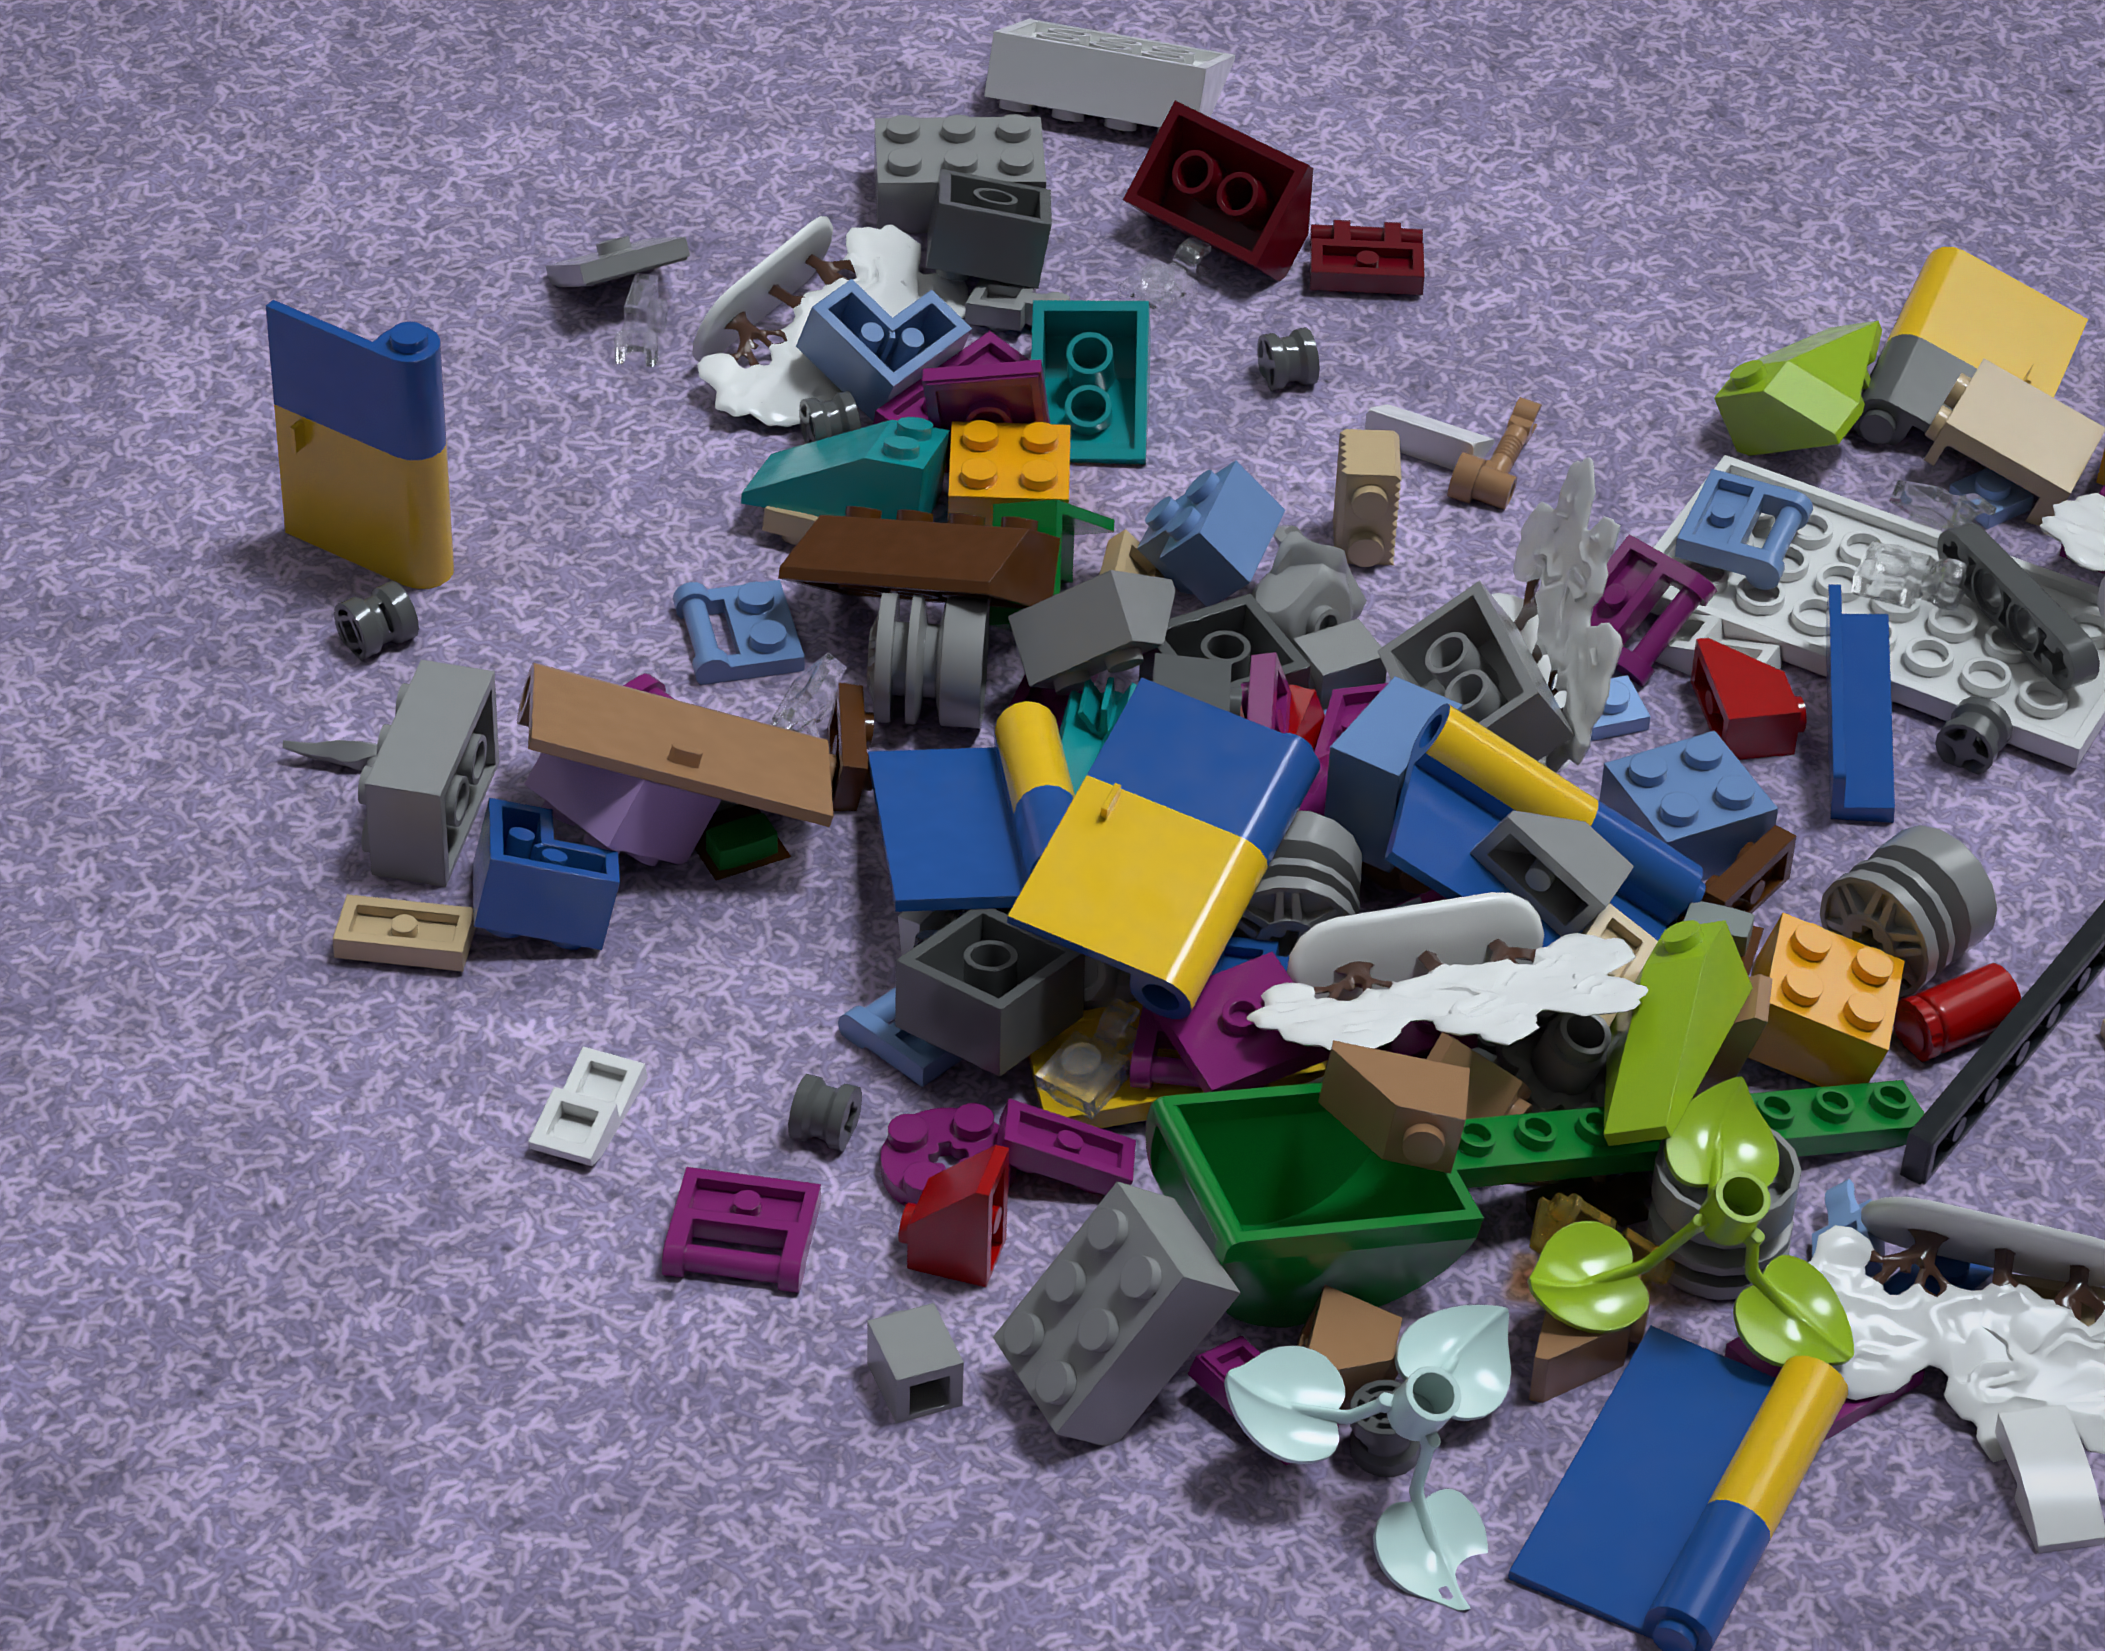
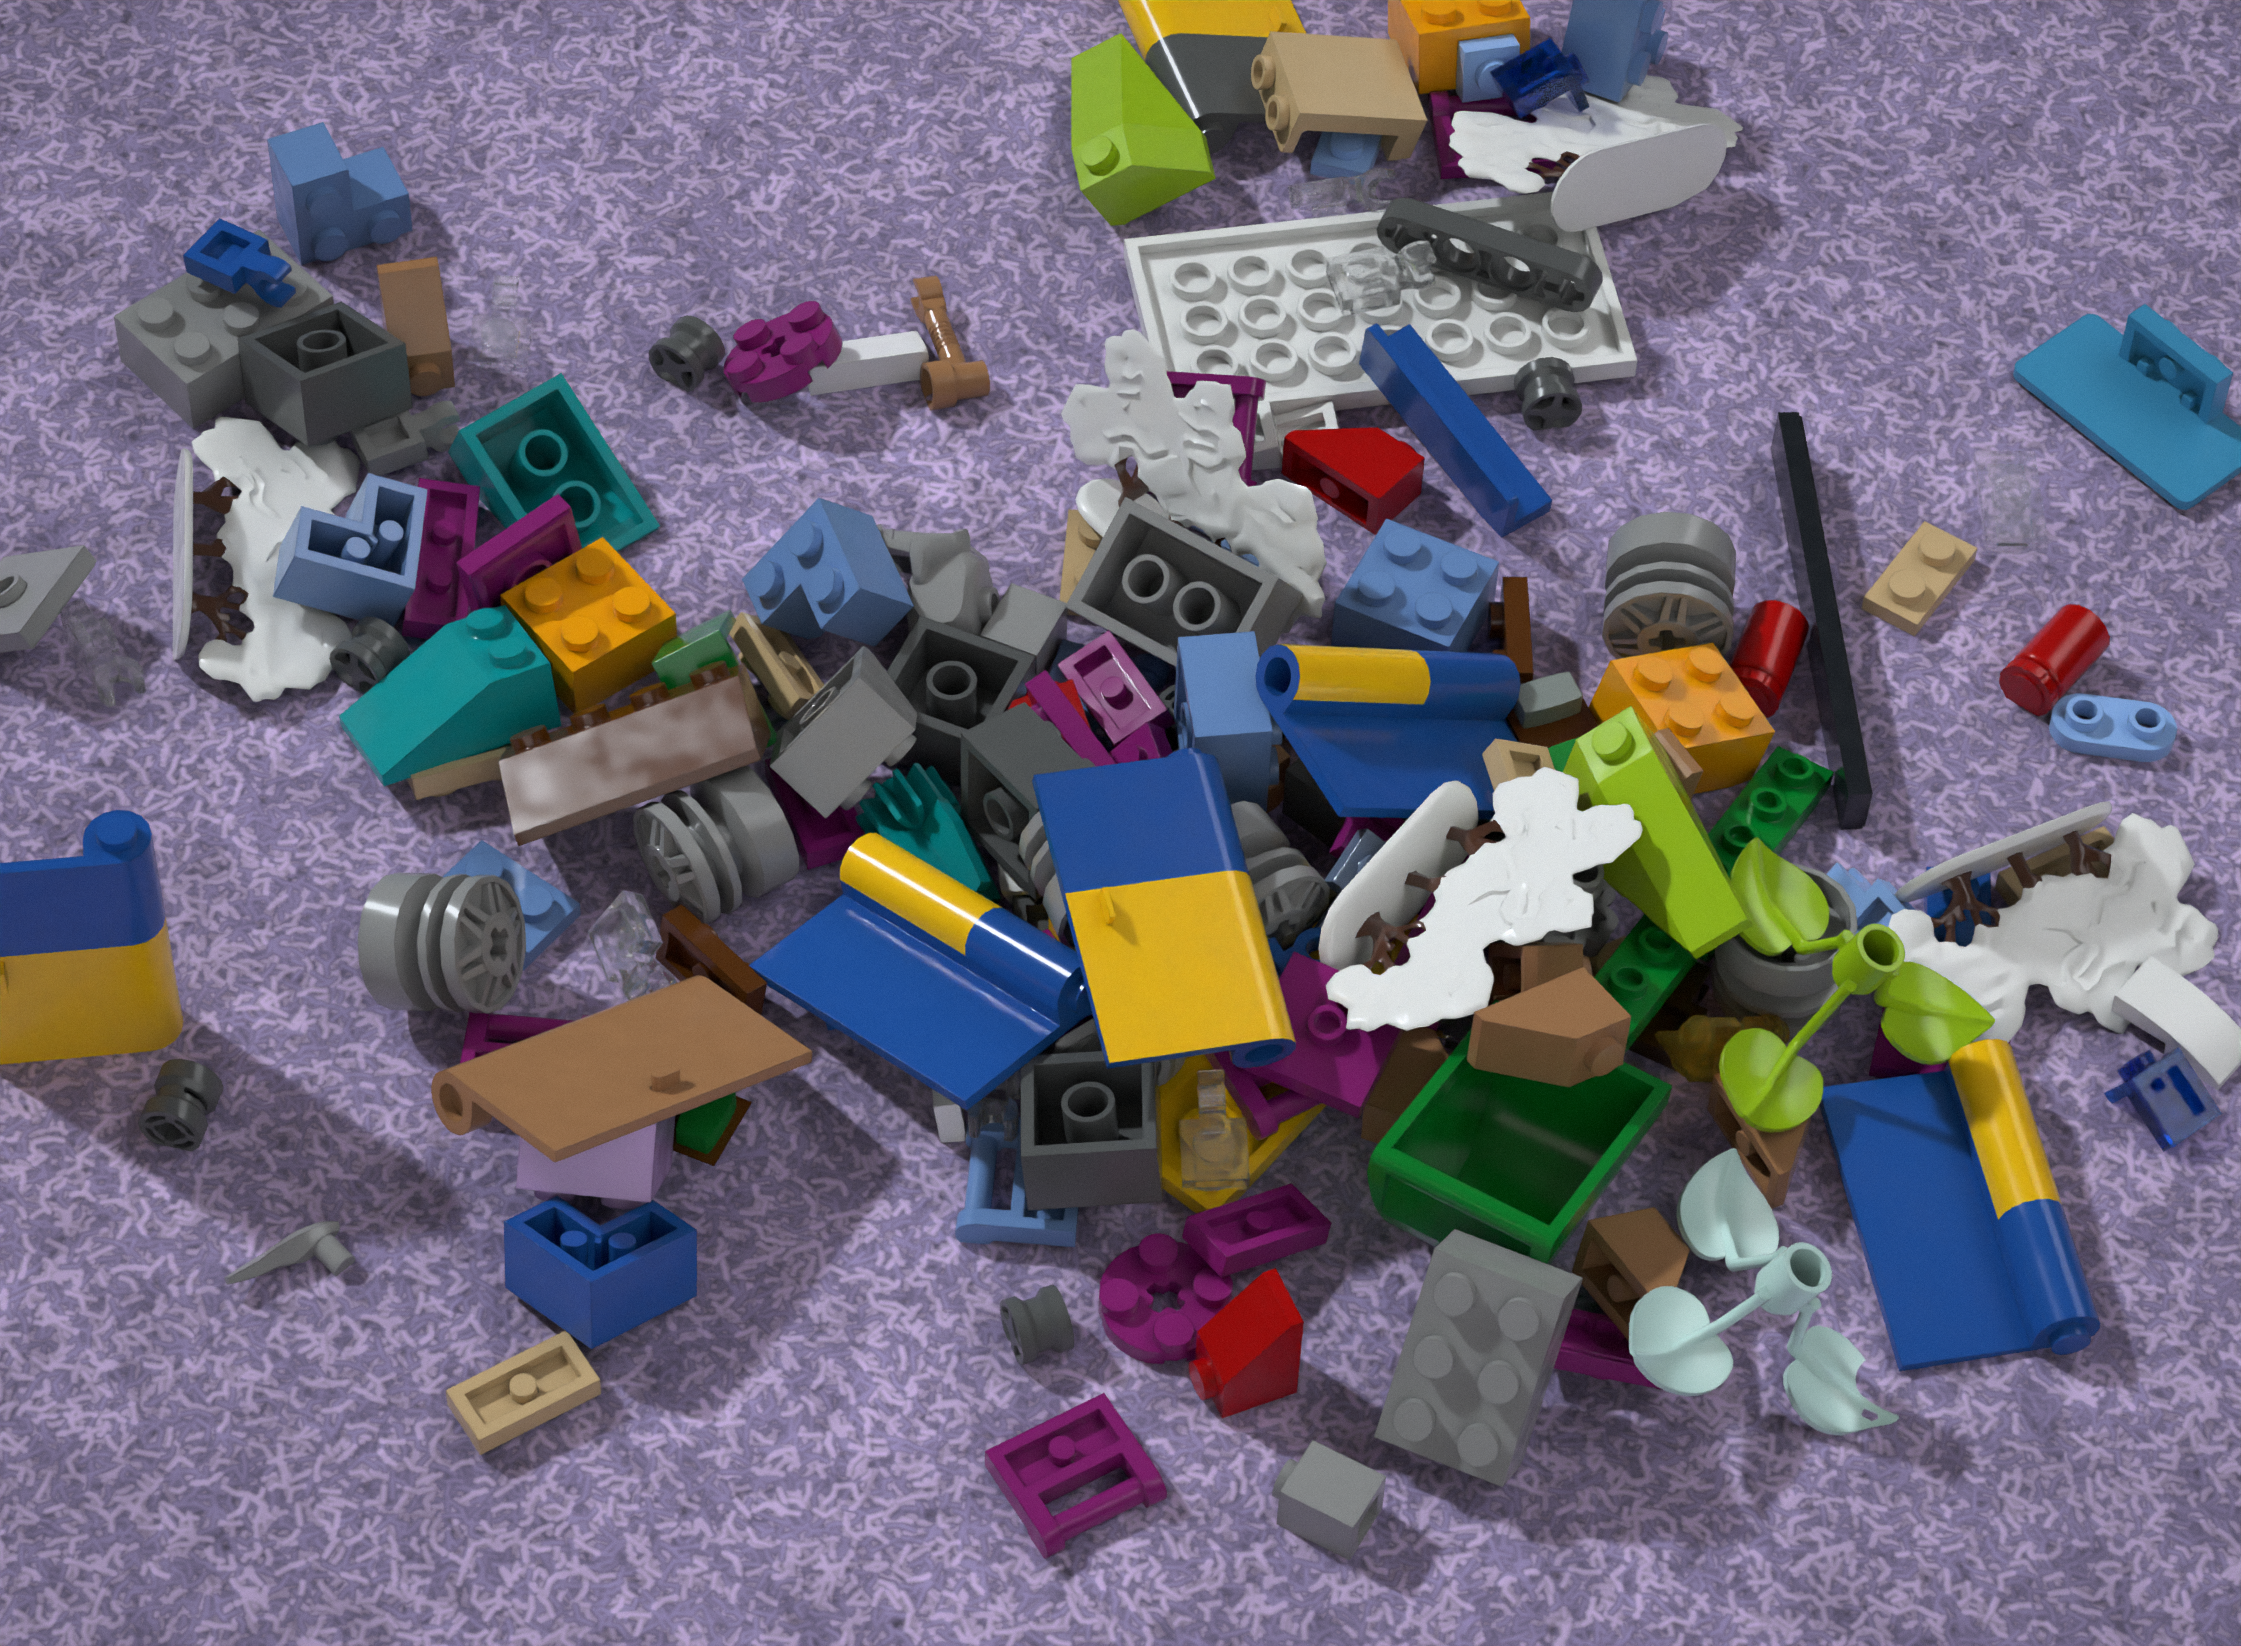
camera: 40 degrees left, 10 degrees up
(430, 773) = (412, 1228): light grey brick -> none
(590, 1107) = (838, 1450): white slope -> none
(653, 607) = (442, 942): none -> light grey wheel
(986, 113) = (235, 256): none -> blue plate
(1091, 234) = (417, 315): none -> medium nougat slope
(1101, 74) = (212, 145): white slope -> none
(1110, 118) = (334, 201): none -> medium blue brick
(1225, 191) = (496, 213): dark red slope -> none
(1356, 389) = (777, 354): none -> magenta plate
(1366, 258) = (645, 208): dark red plate -> none
(1367, 496) = (906, 459): tan brick -> none
(1374, 1442) = (1725, 1285): dark grey wheel -> none
(1555, 866) = (1448, 737): light grey slope -> none
(1725, 518) = (1201, 312): medium blue plate -> none
(1970, 1519) = (2165, 1096): none -> clear blue bracket

